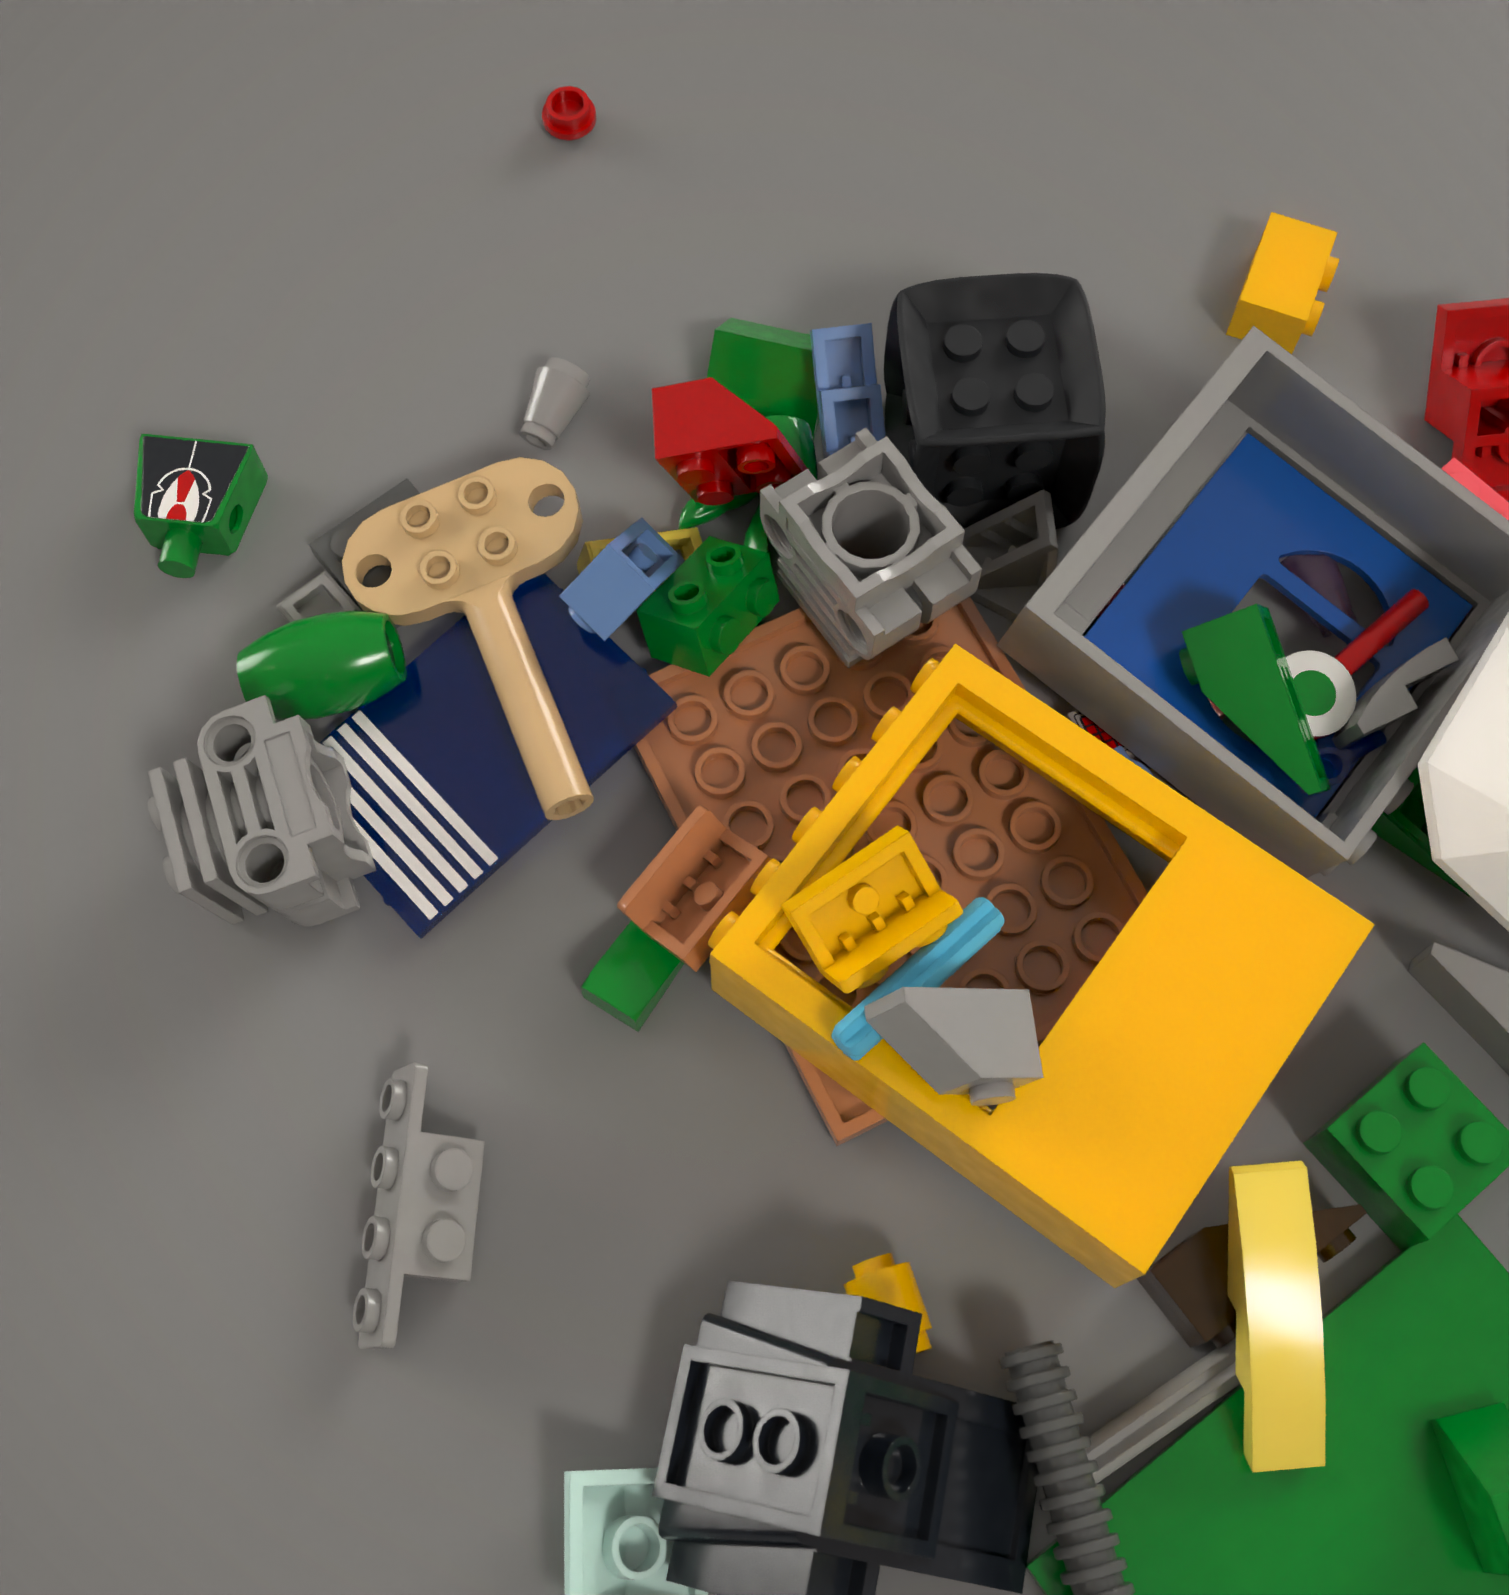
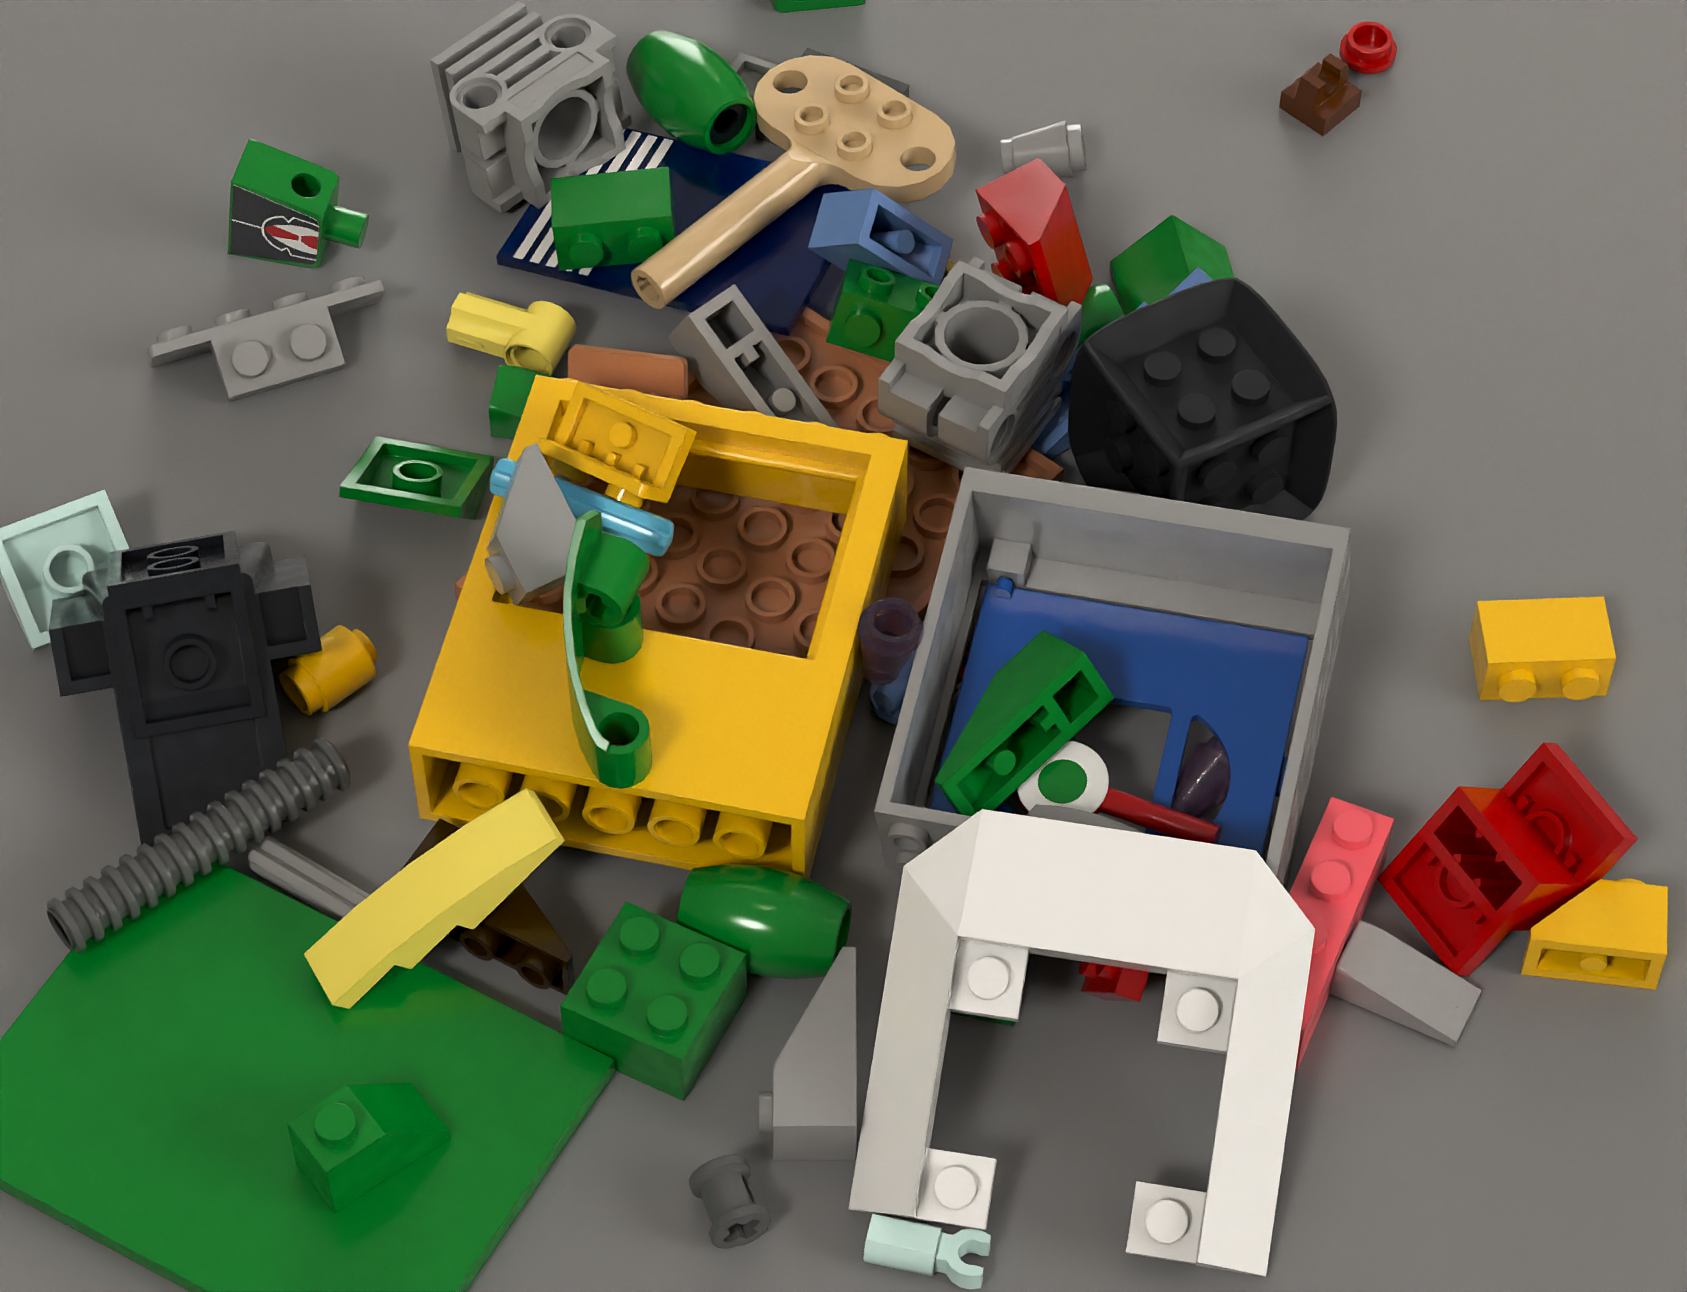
camera: 65 degrees right, 15 degrees down
(261, 1120) = (287, 209): none -> torso
(458, 802) = (611, 217): none -> green brick
(545, 947) = (523, 337): none -> light yellow piece
(600, 171) = (1321, 95): none -> reddish brown tile
(679, 1127) = (419, 478): none -> green slope
(729, 757) = (743, 362): none -> light grey slope
(1106, 1020) = (605, 625): none -> green panel
(1172, 754) = (888, 638): none -> cone
(1370, 1013) = (771, 914): none -> green piece

